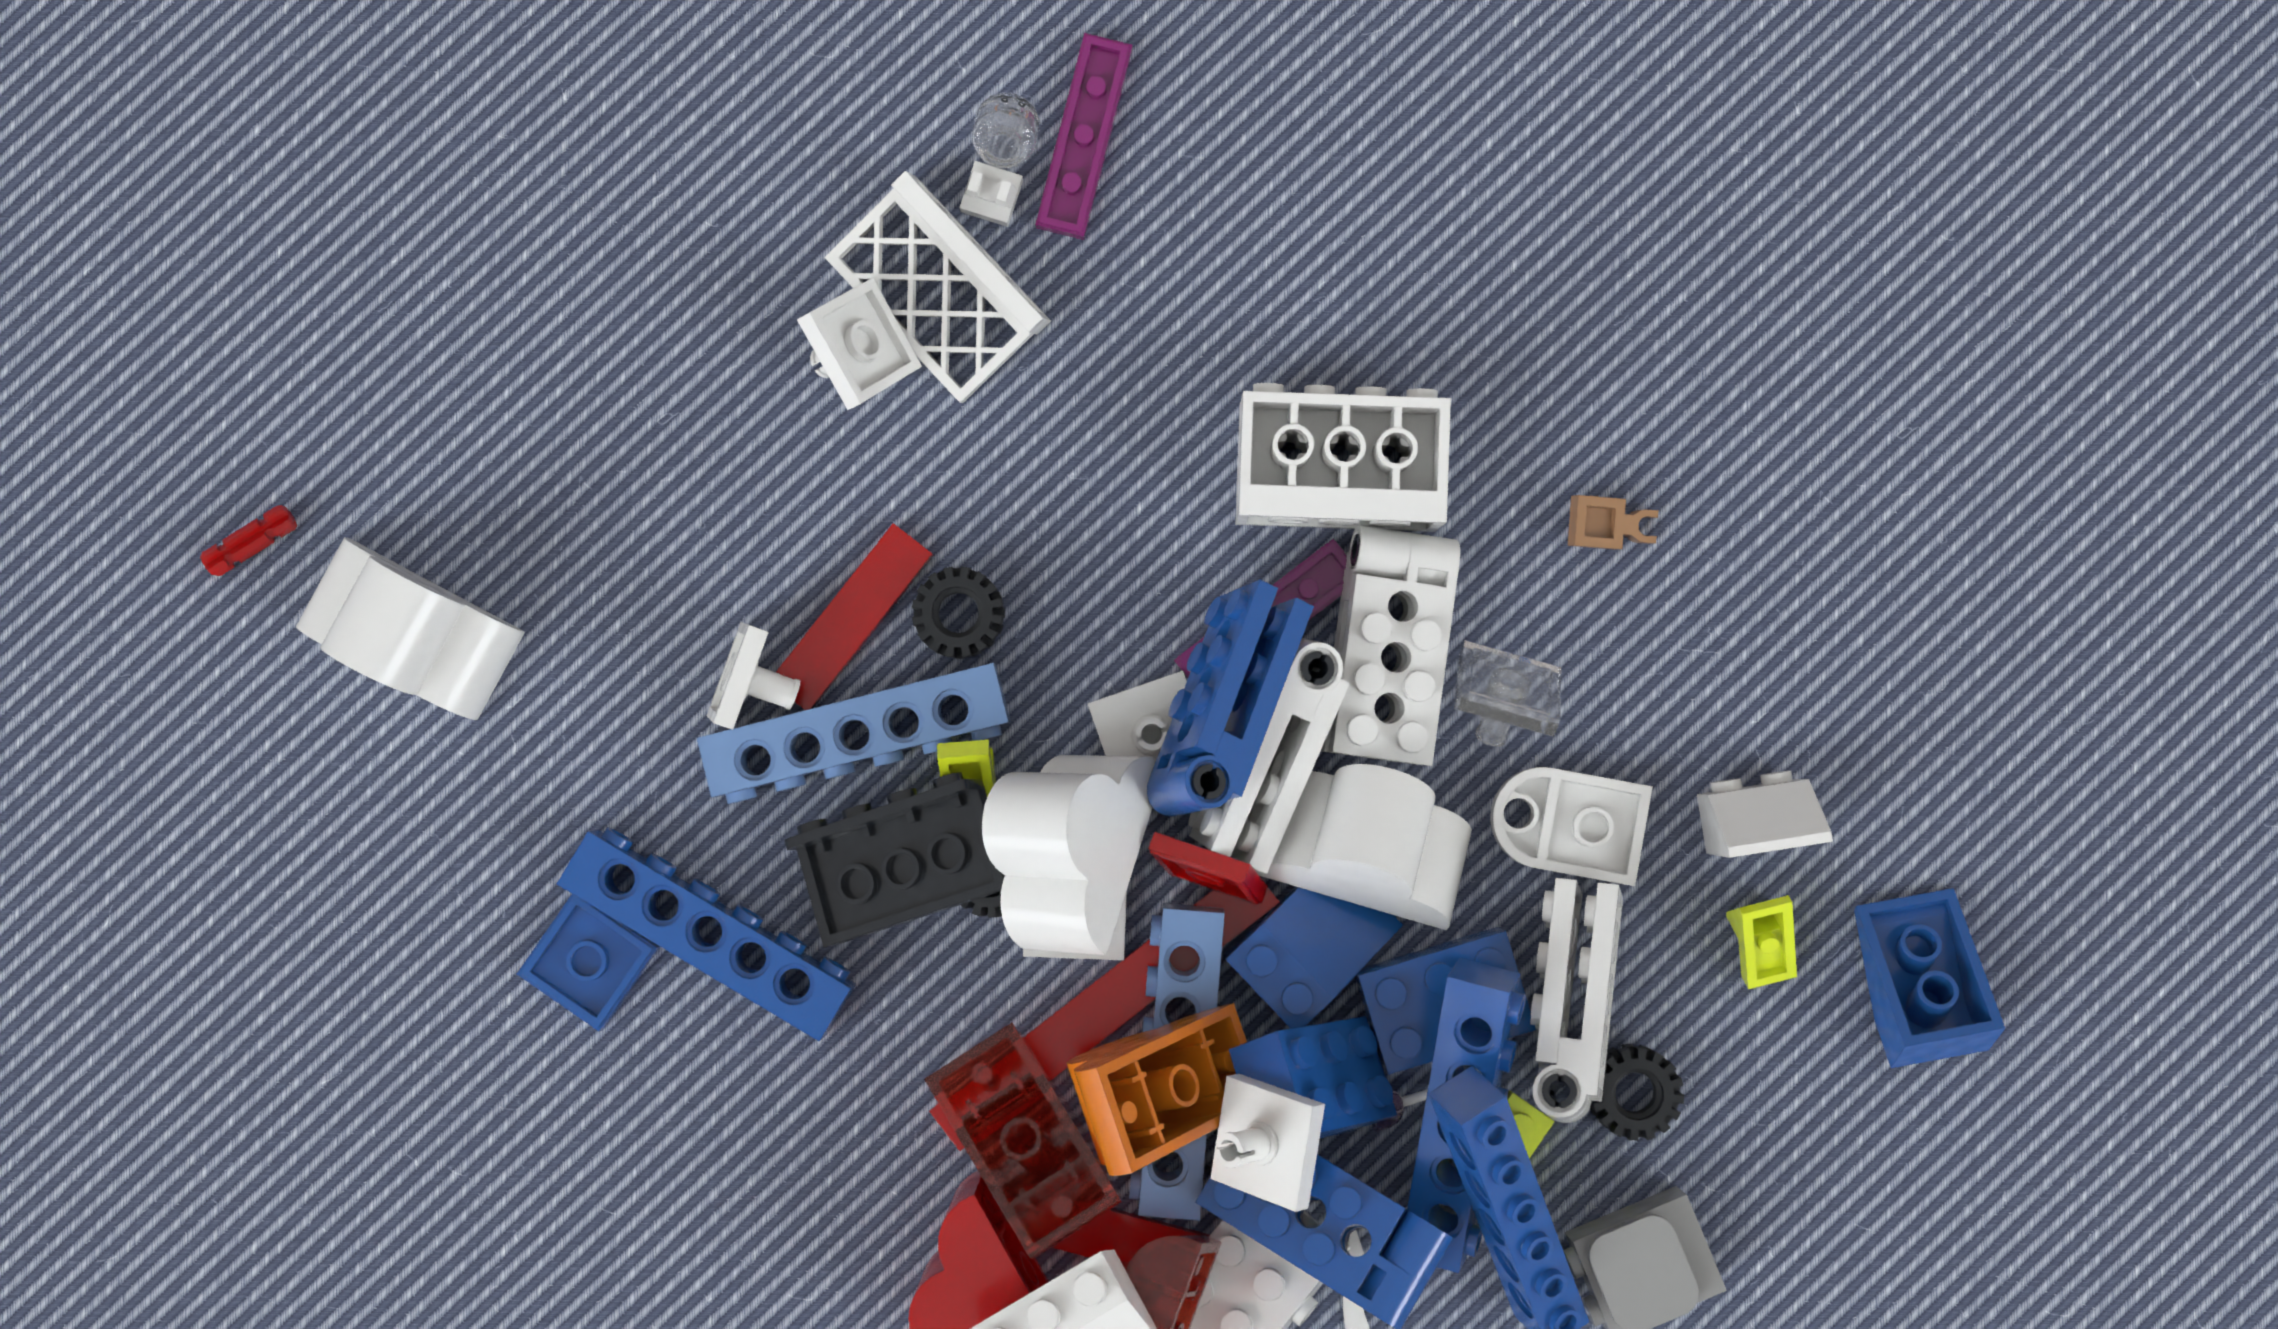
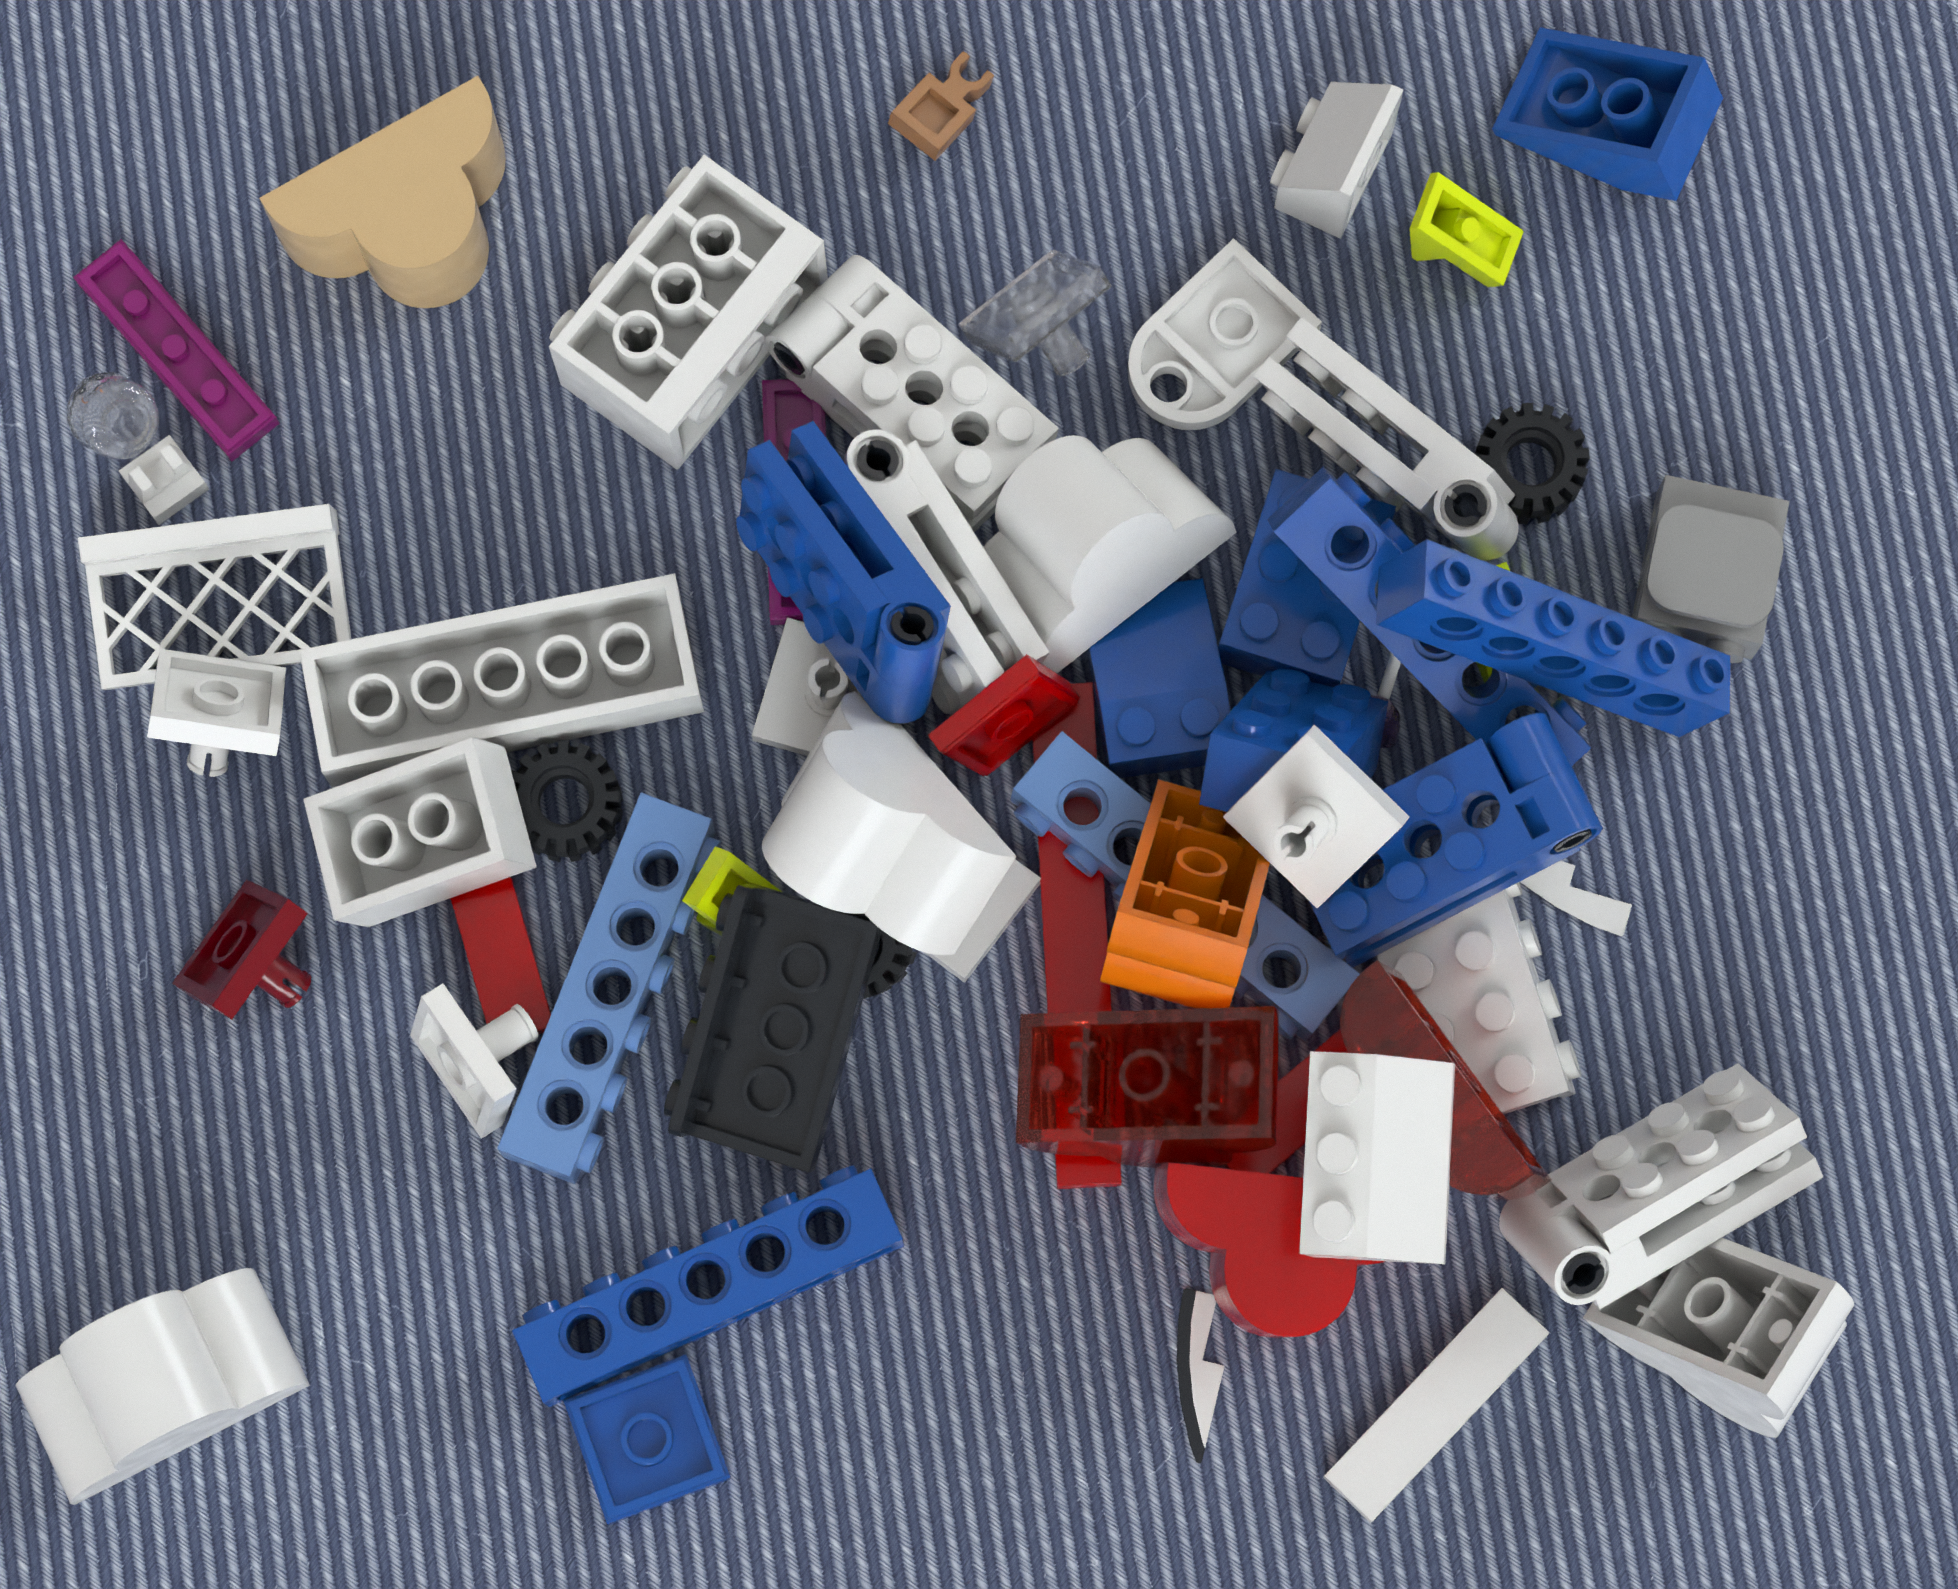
camera: 60 degrees left, 10 degrees down
(711, 481) = (245, 954): none -> dark red tile
(864, 539) = (419, 832): none -> white brick
(870, 1283) = (1197, 1378): none -> sticker
(1005, 516) = (503, 677): none -> white brick
(1284, 215) = (401, 202): none -> tan brick

